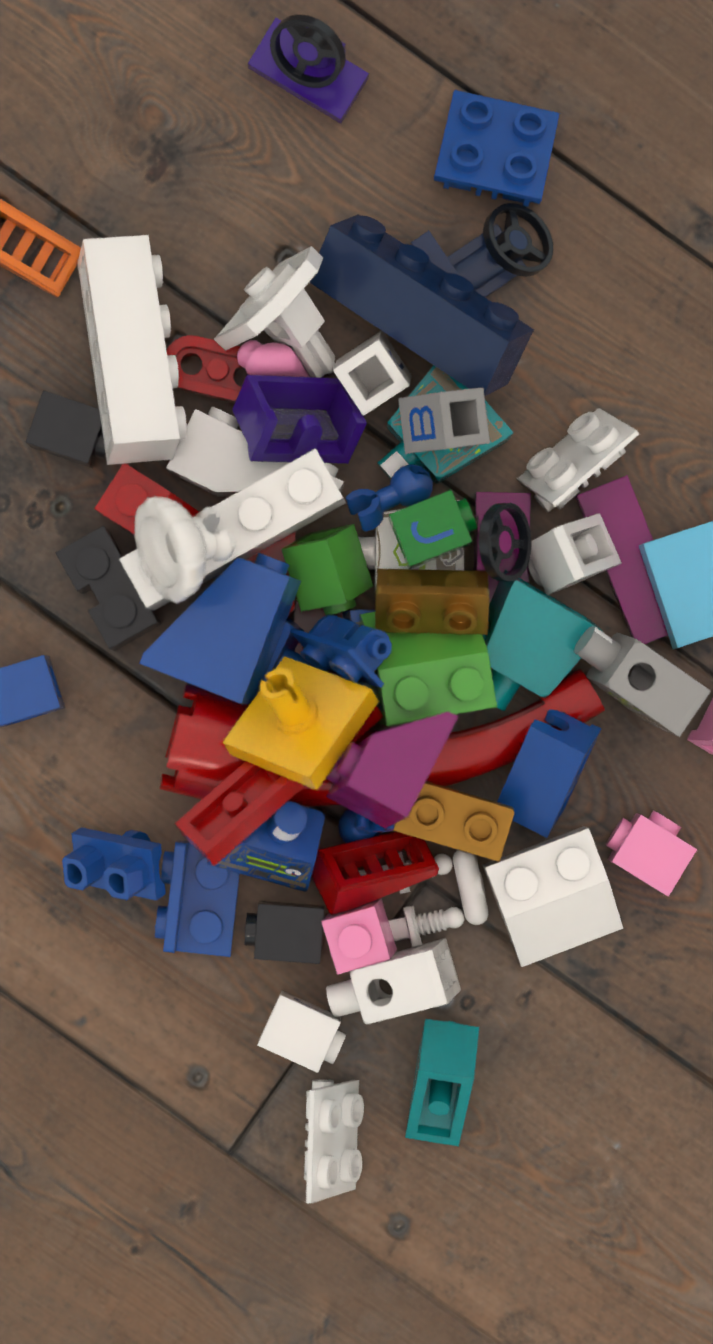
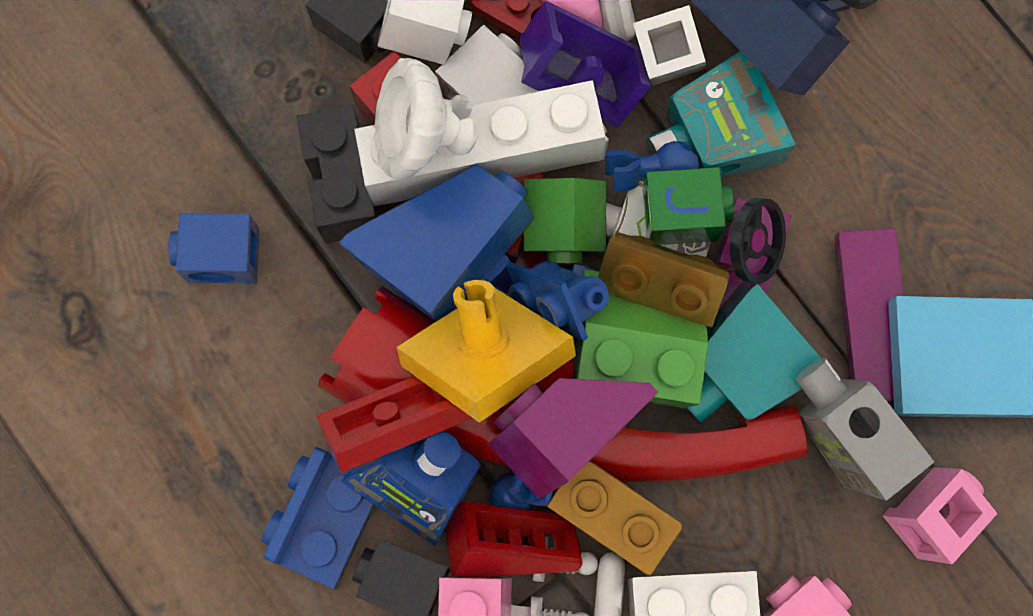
camera: 25 degrees right, 10 degrees down
(115, 863) = (245, 450): blue hips -> none
(444, 420) = (732, 99): light grey brick -> none
(548, 770) = (729, 496): blue hinge -> none
(572, 554) = (818, 282): white slope -> none
(591, 444) = (868, 189): white hinge -> none

